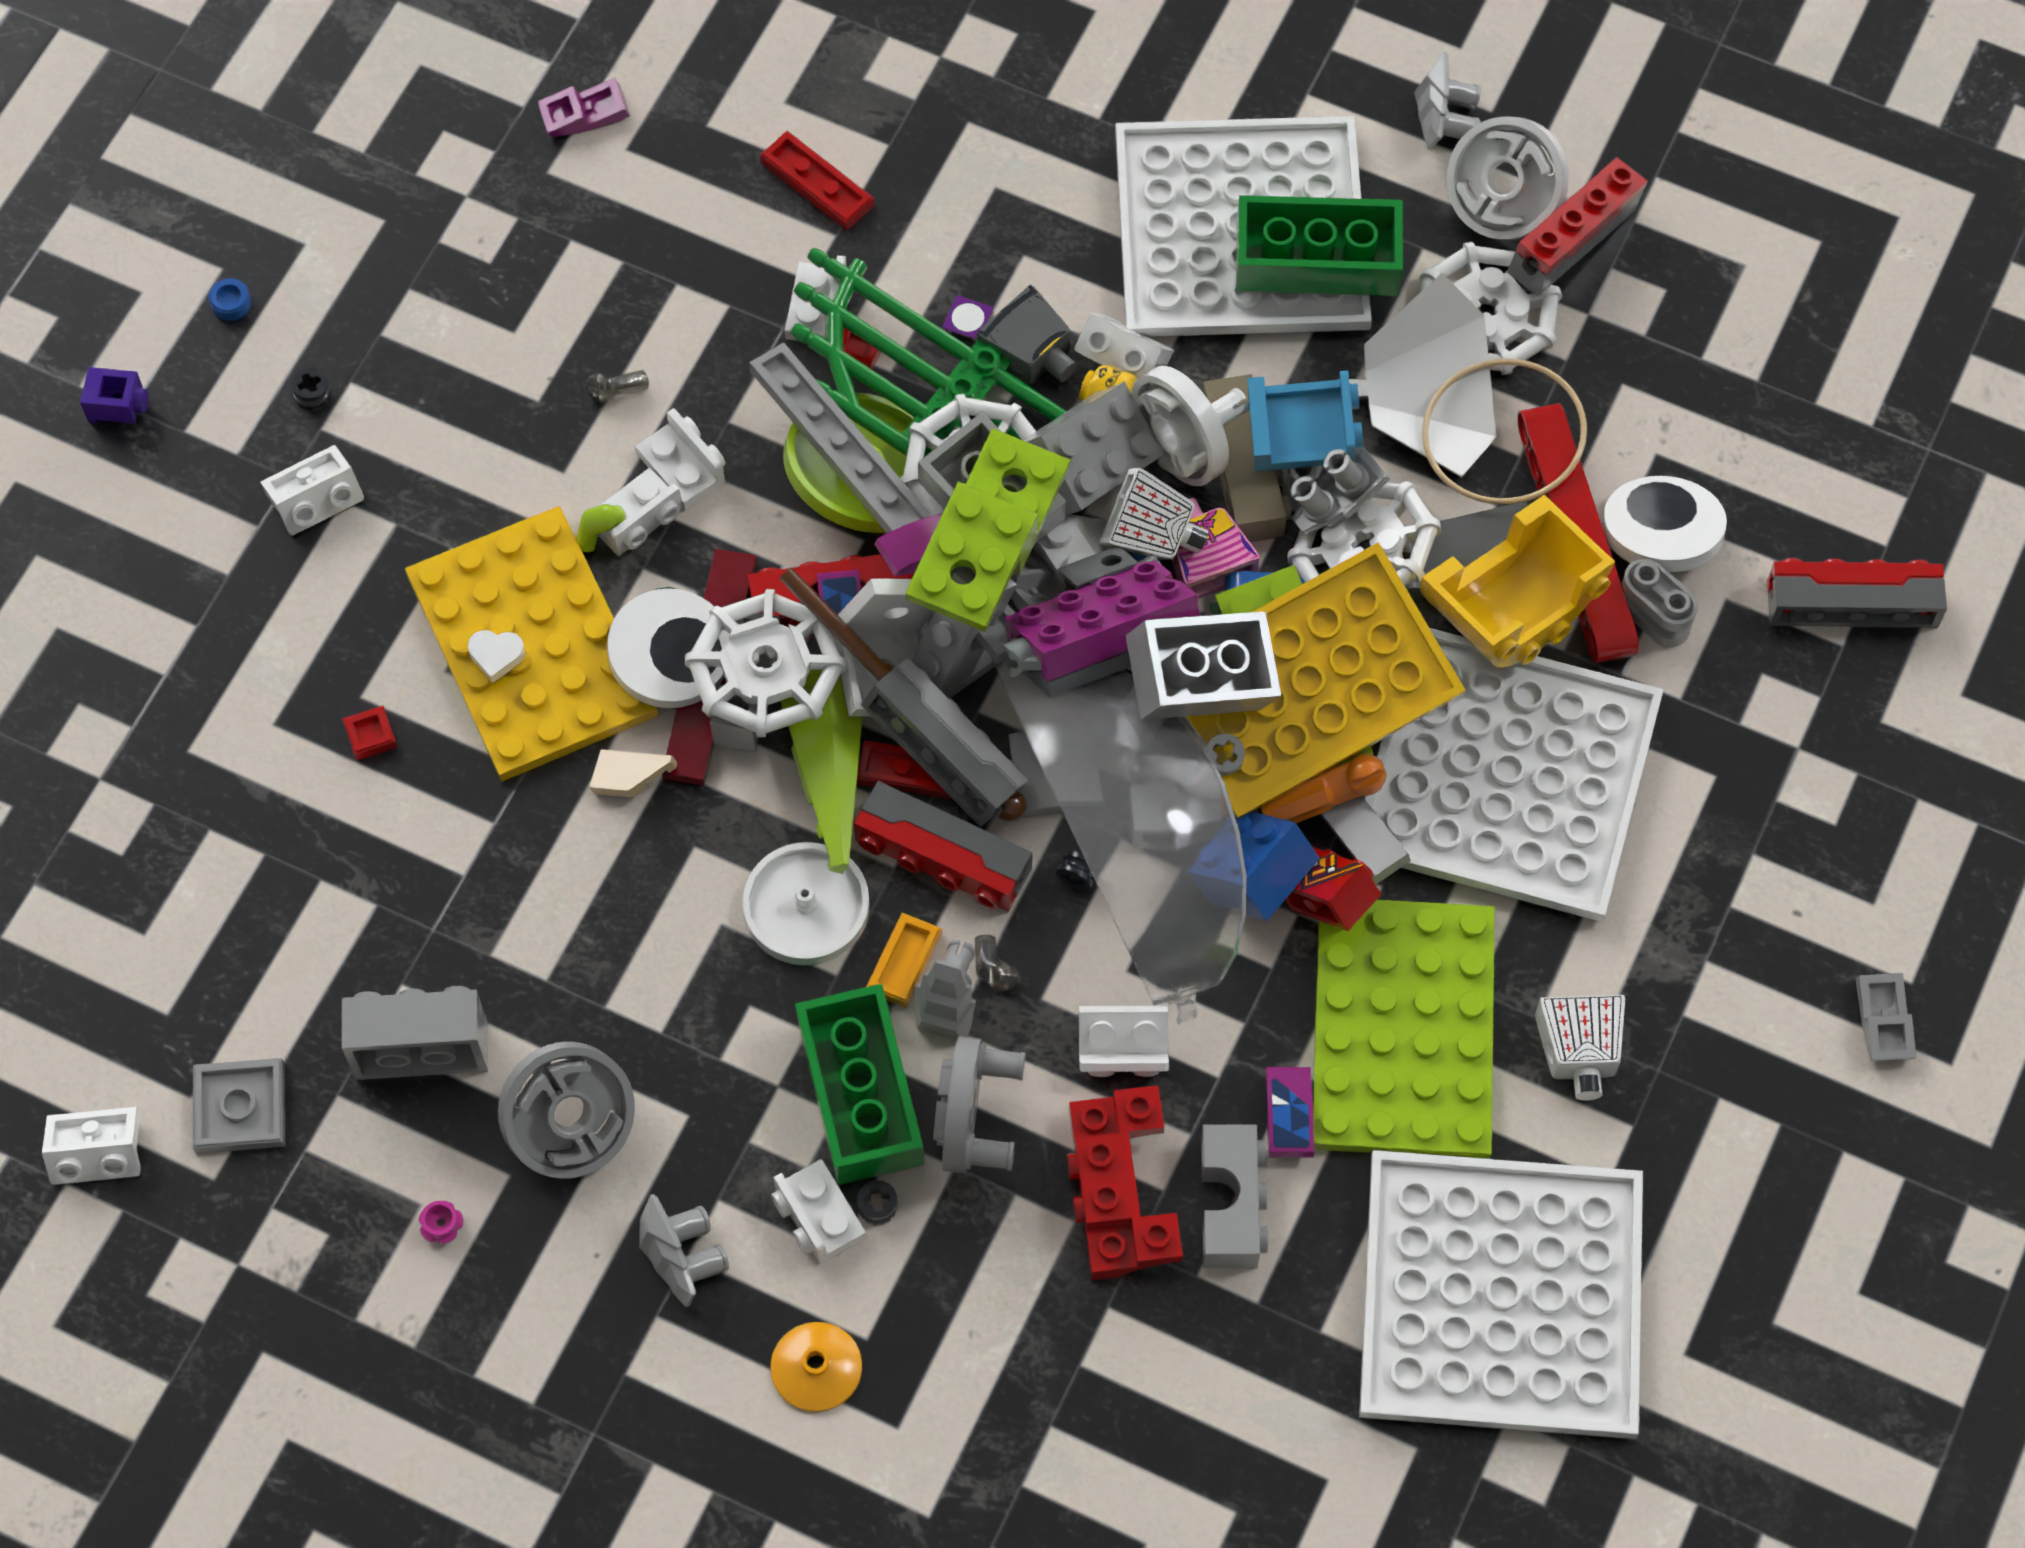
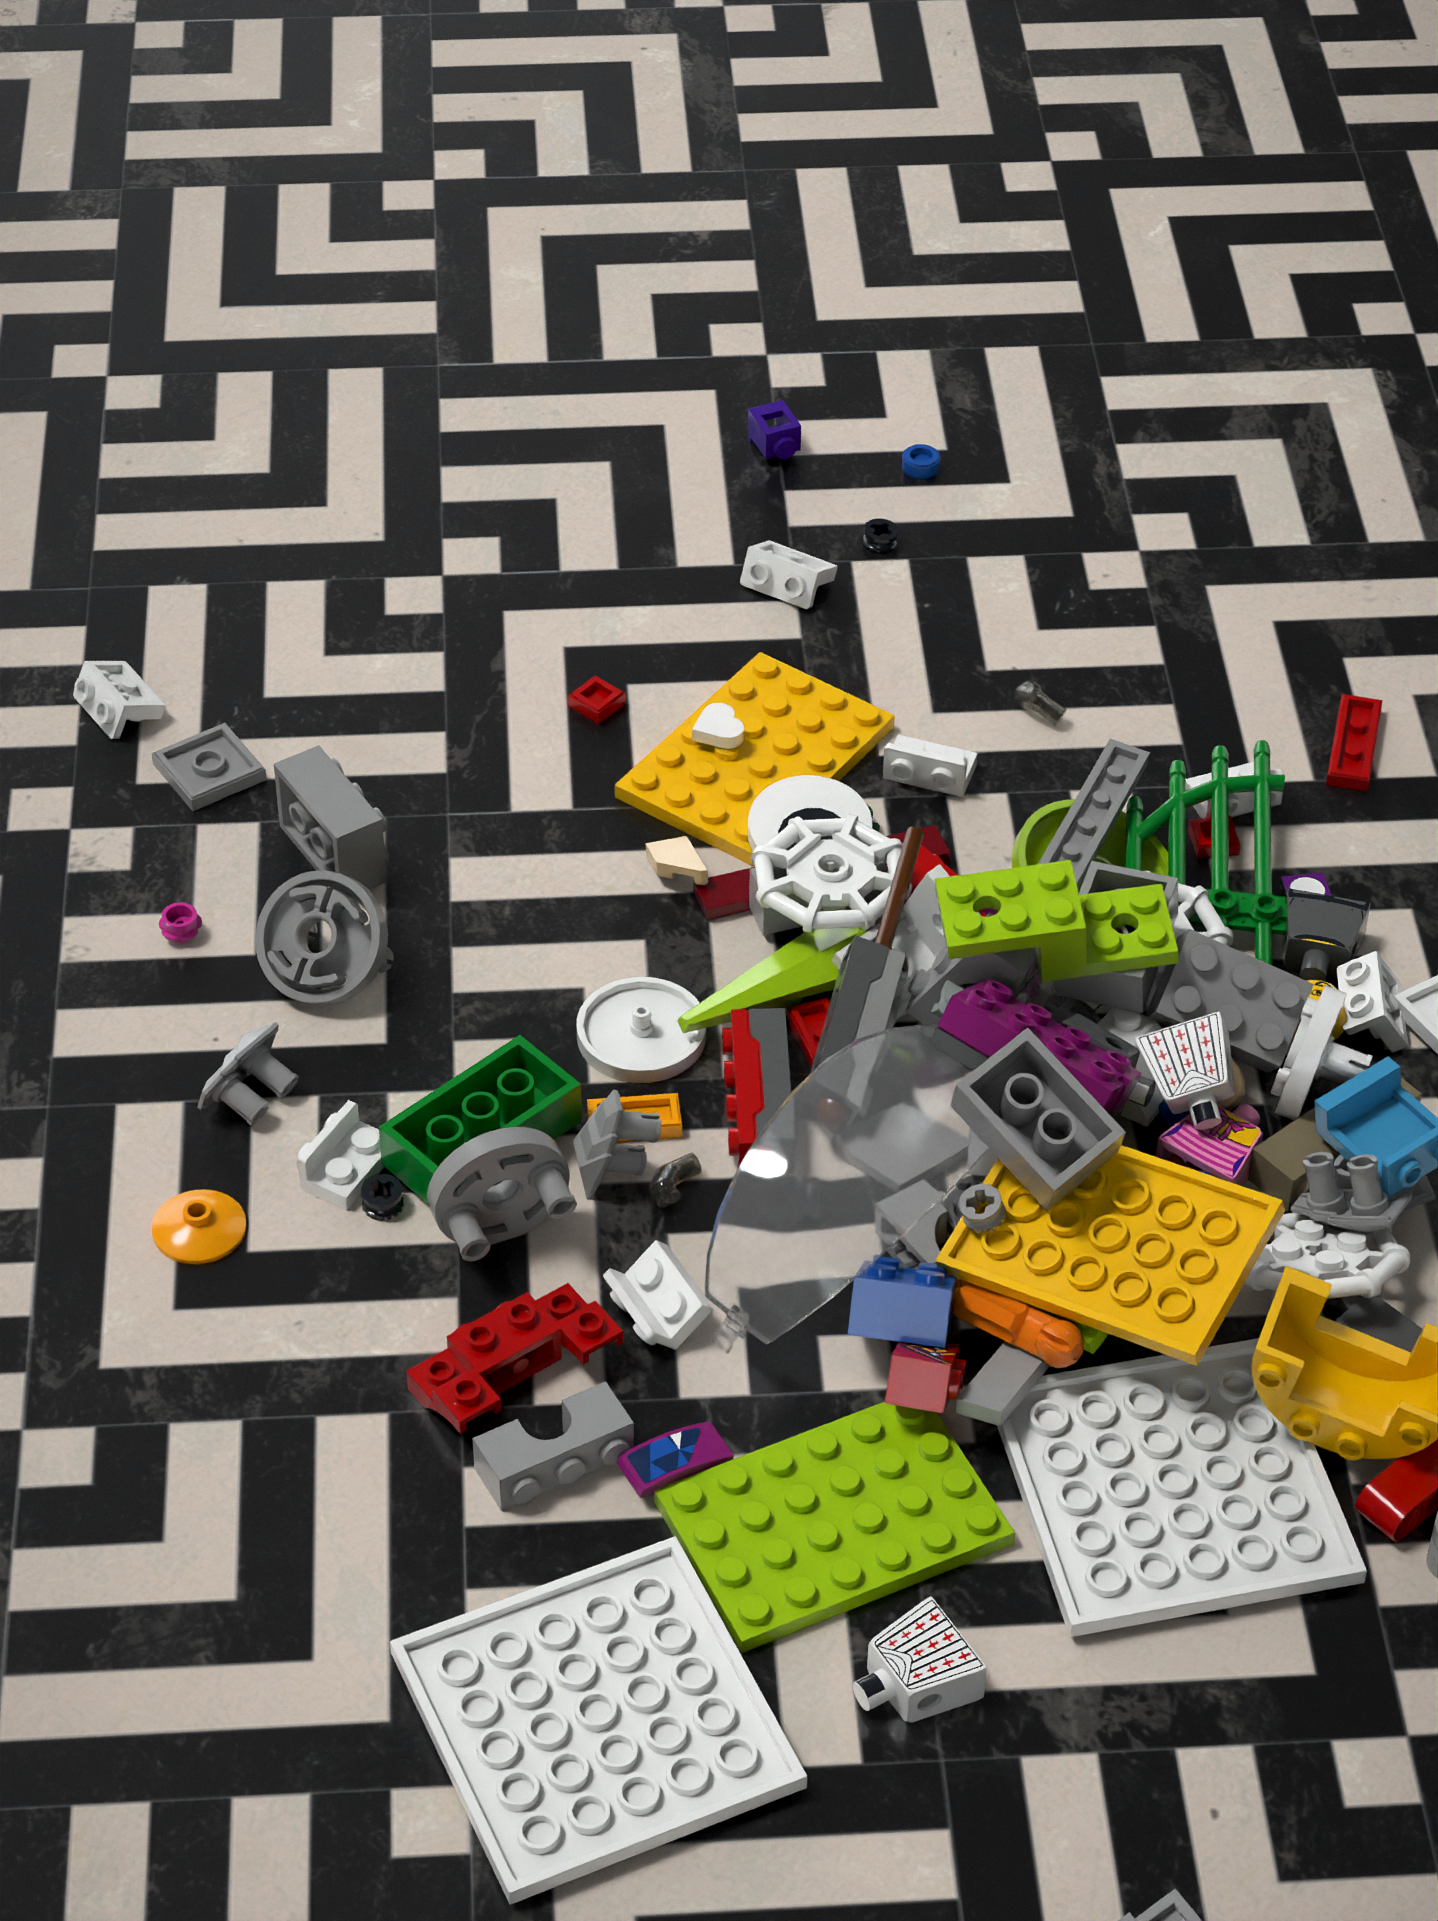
camera: 60 degrees right, 20 degrees down
(580, 112) = (1277, 574): slope -> none
(597, 521) = (891, 732): lime arm -> none
(683, 459) = (1002, 772): white bracket -> none

